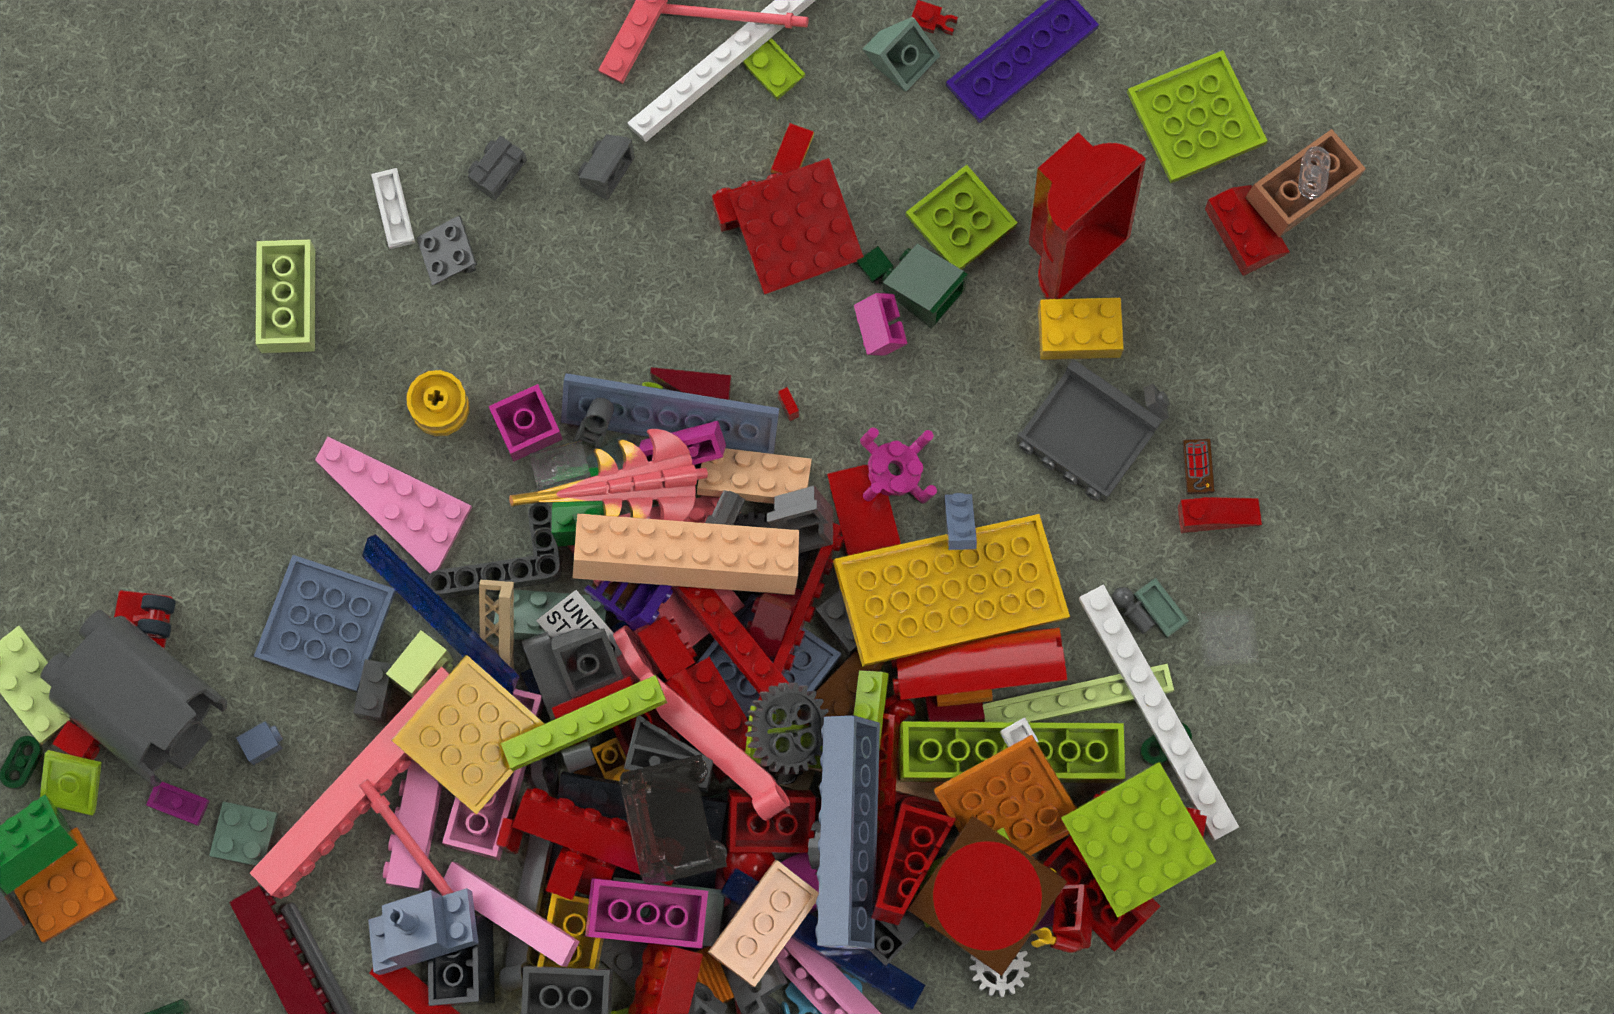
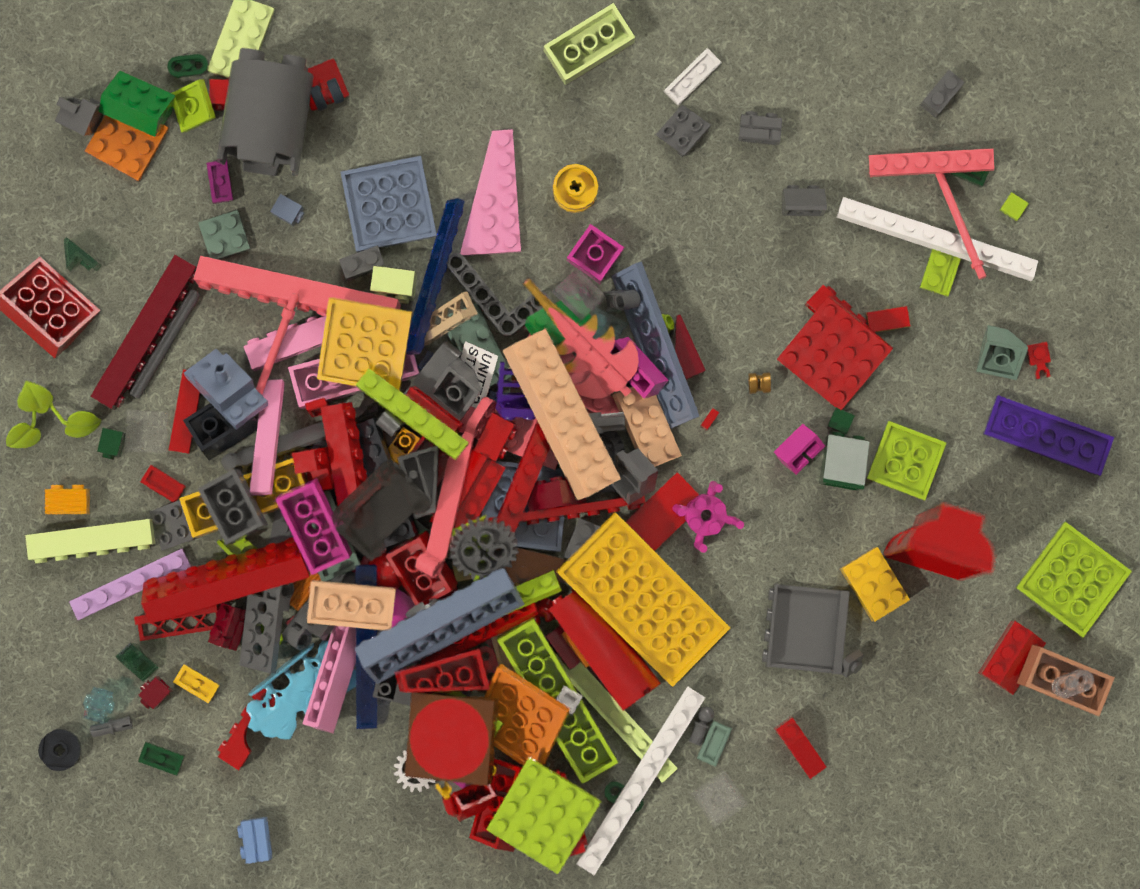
camera: 55 degrees right, 10 degrees up
(780, 327) = (764, 383): none -> pearl gold wheel
(960, 522) = (692, 579): sand blue plate -> none
(1198, 466) = (825, 715): tile -> none

